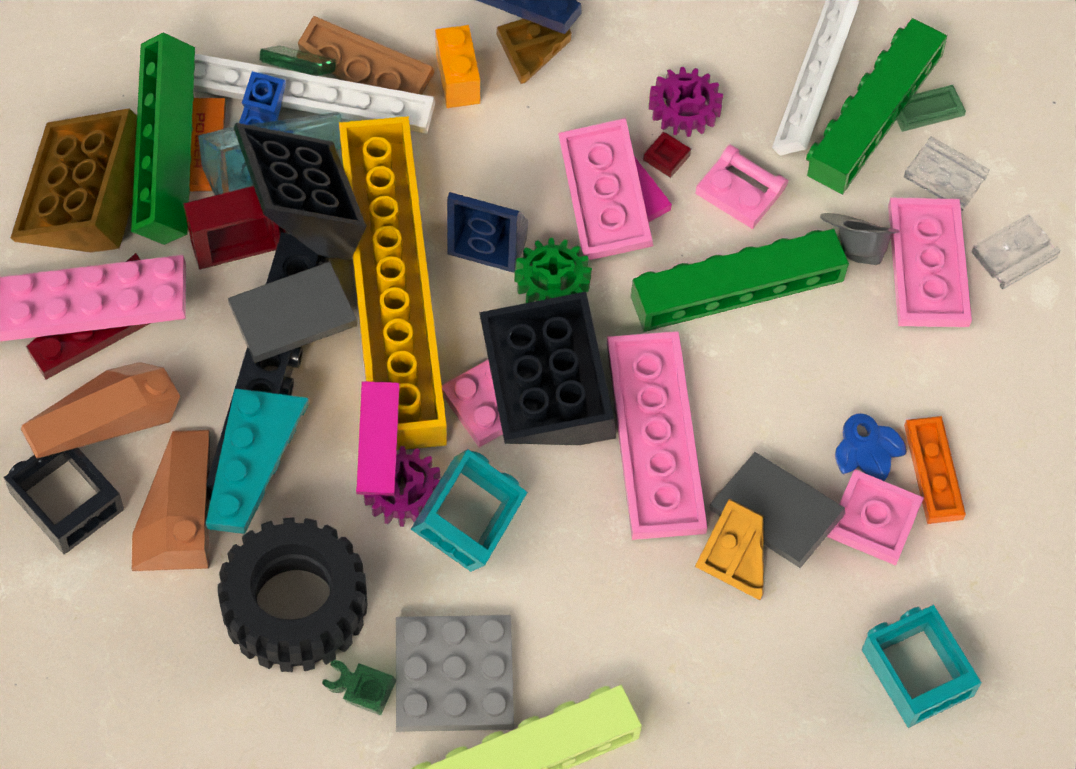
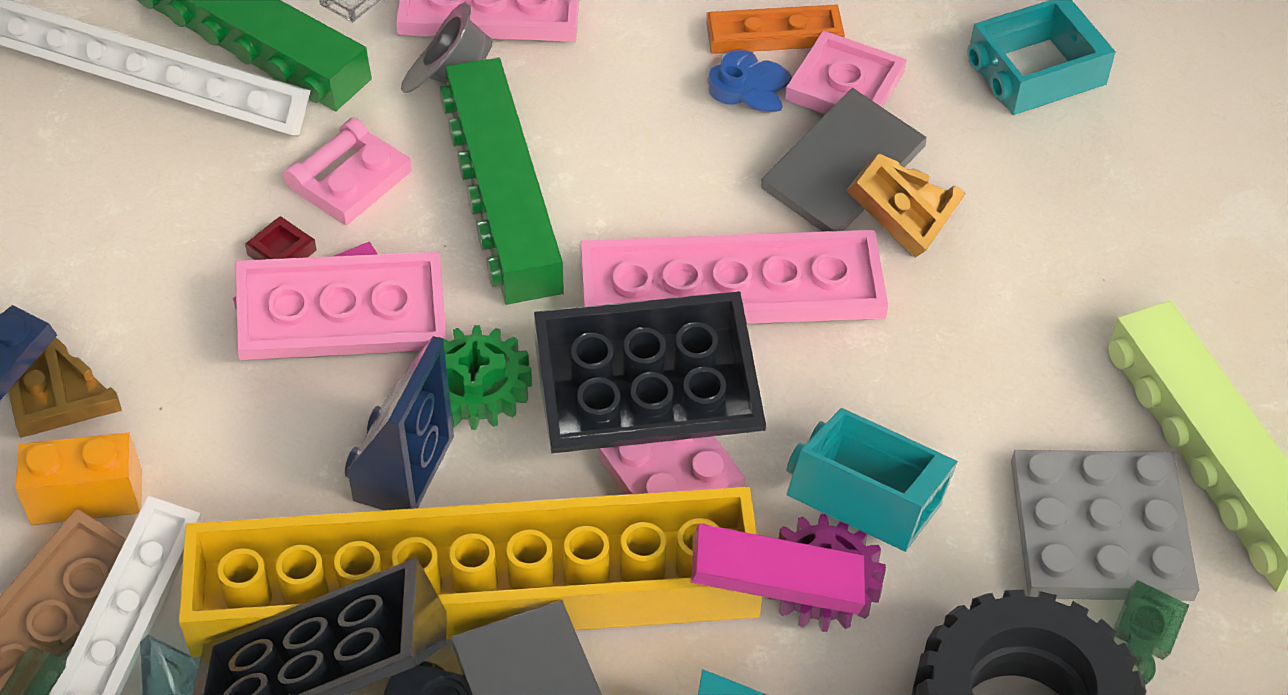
camera: 85 degrees left, 10 degrees down
(685, 101) = (198, 213): magenta gear -> none

